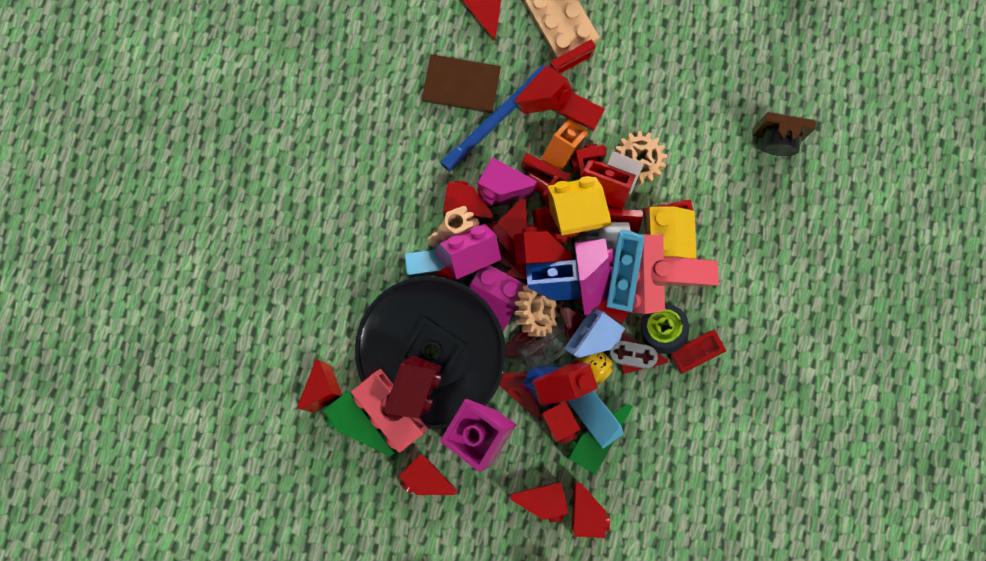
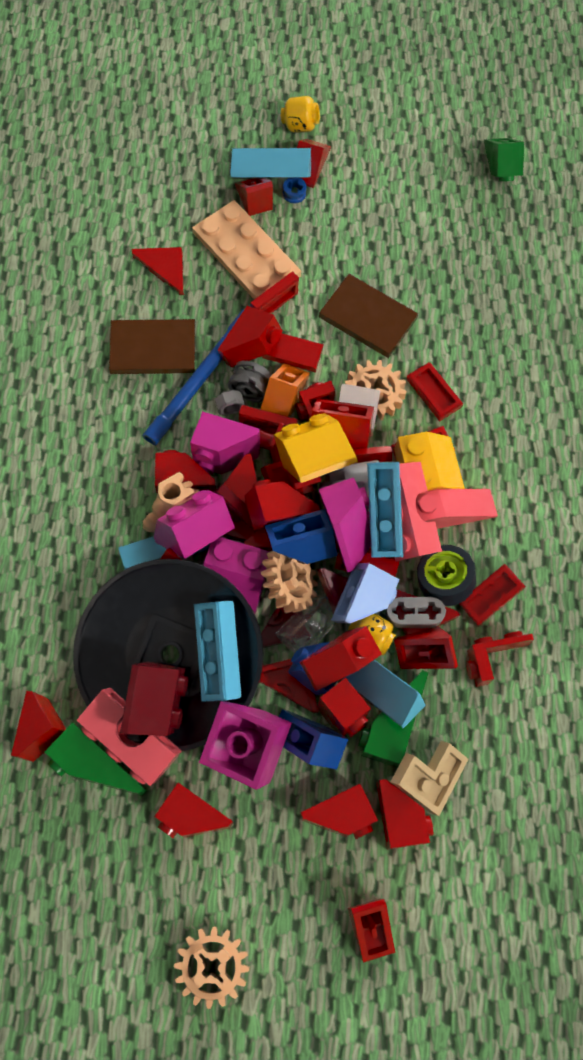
camera: 10 degrees left, 10 degrees down
(469, 358) = (217, 651): none -> medium azure slope
(516, 146) = (229, 402): none -> light grey tile
(530, 441) = (313, 741): none -> blue slope
(537, 132) = (250, 381): none -> flat silver wheel
(618, 492) = (433, 783): none -> tan plate
(635, 387) = (426, 650): none -> red slope
(648, 88) = (368, 315): none -> reddish brown tile
(674, 406) = (479, 665): none -> red bracket
(690, 167) = (434, 391): none -> red tile
(783, 133) = (530, 332): piece -> none

